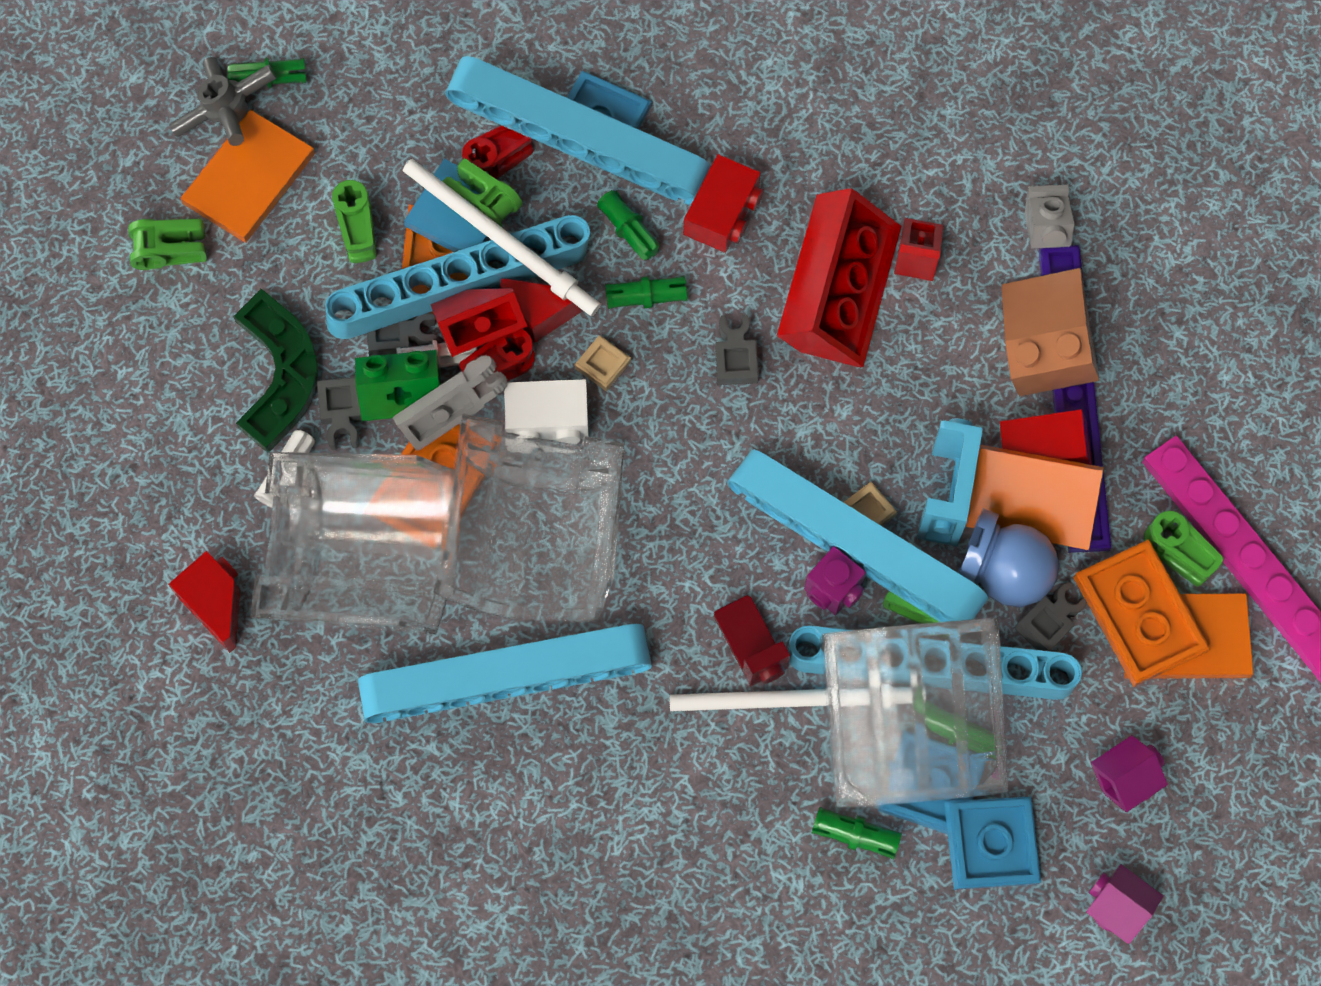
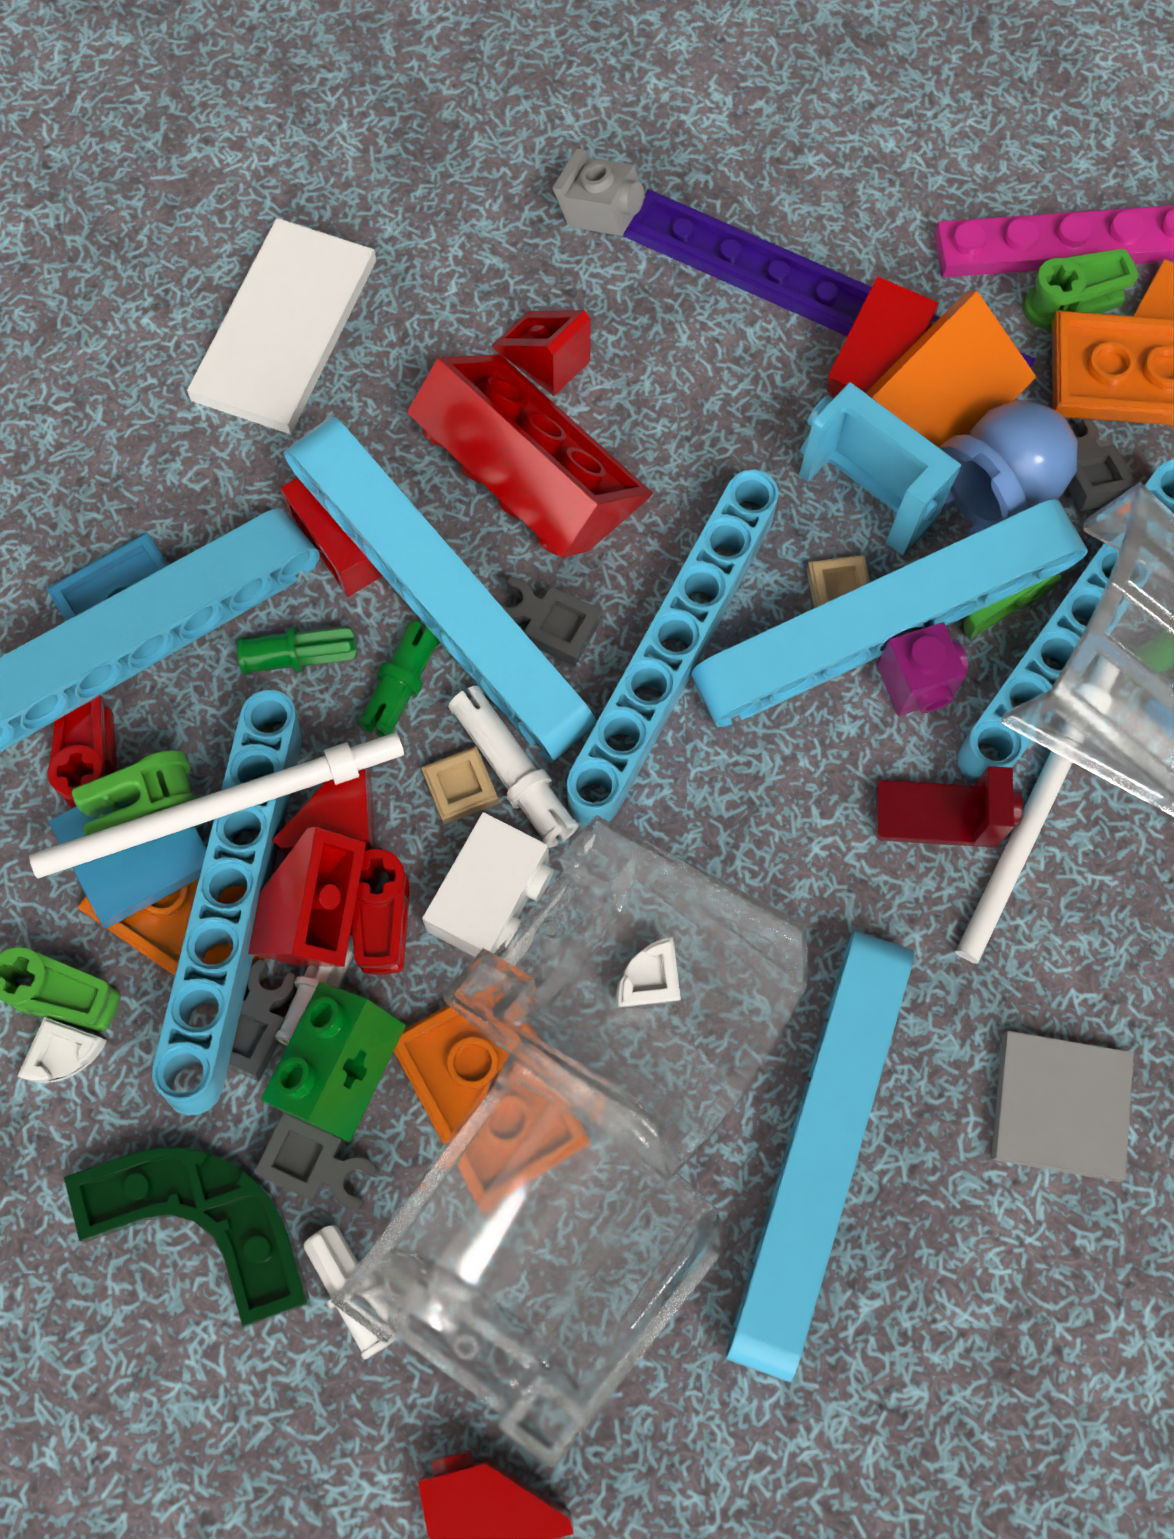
camera: 60 degrees left, 0 degrees up
(325, 246) = (59, 1052): none -> white tile
(444, 406) = (409, 1003): light grey hinge -> none
(547, 526) = (650, 977): none -> white tile
(610, 800) = (1063, 1106): none -> light grey tile
(623, 397) = (525, 784): none -> white pin
(706, 278) = (440, 588): none -> medium azure beam
(777, 418) = (669, 670): none -> medium azure beam
(838, 91) = (282, 326): none -> white tile
(1048, 333) = (742, 267): nougat slope -> none

